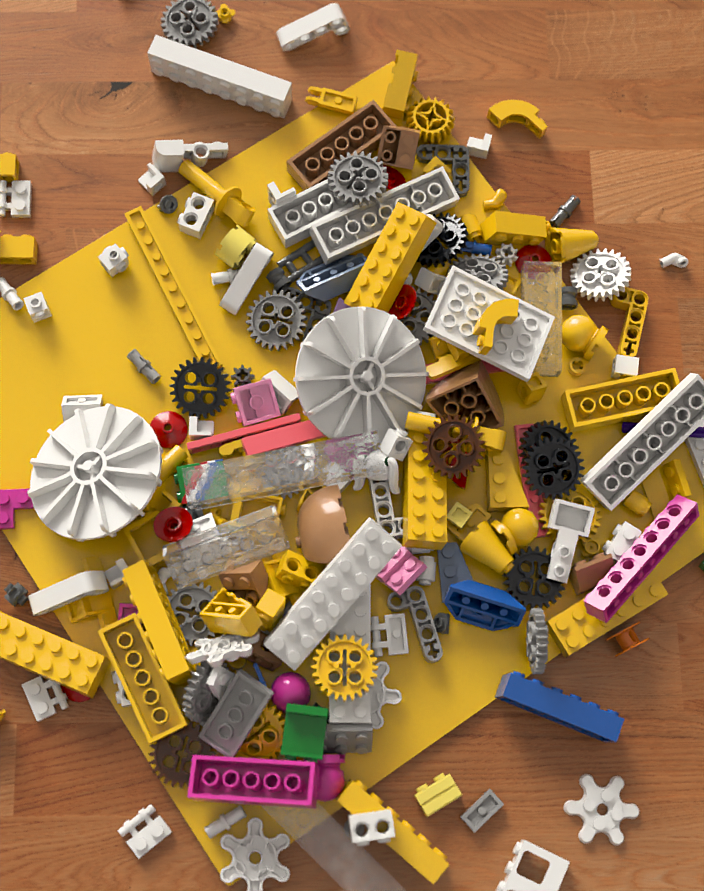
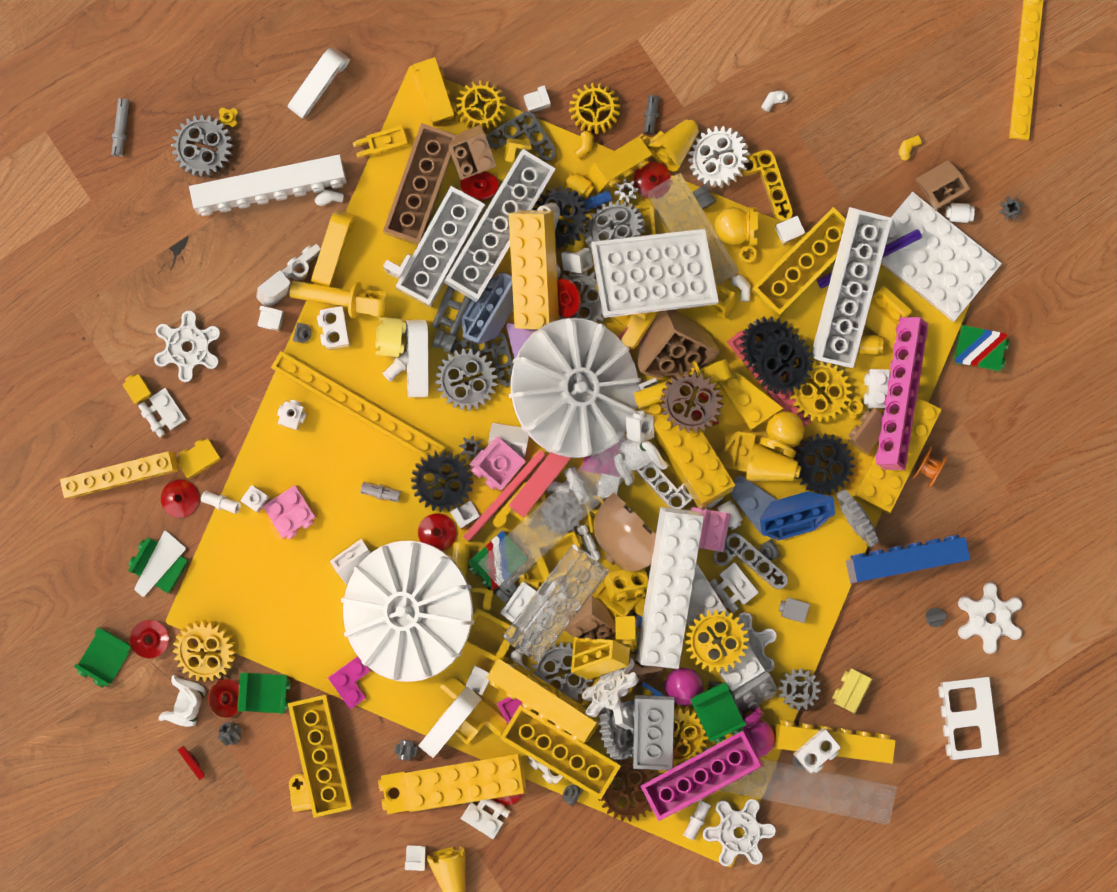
camera: 25 degrees left, 10 degrees up
(58, 337) = (289, 513): none -> bright pink plate
(64, 150) = (187, 333): none -> white plate
(130, 726) = (571, 794): none -> dark grey plate
(149, 836) = (643, 869): white plate -> none
(173, 517) = (493, 606): red dish -> none
(237, 152) = (332, 247): none -> yellow beam
(261, 116) = (327, 196): none -> white arm
(289, 518) = (588, 541): none -> white axle
(357, 178) = (474, 210): light grey gear -> none
(392, 771) = (793, 682): none -> light grey gear
(430, 688) = (794, 610): none -> light grey brick
(459, 515) = (729, 452): light yellow plate -> none
(482, 810) = (895, 680): light grey plate -> none
(500, 312) = (653, 279): yellow arch -> none
(515, 170) = (602, 108): none -> yellow gear
(517, 112) = (552, 45): yellow arch -> none
(552, 776) = (935, 617): none -> dark grey plate
(556, 384) = (744, 286): none -> white arm
(570, 521) = (825, 400): white plate -> none

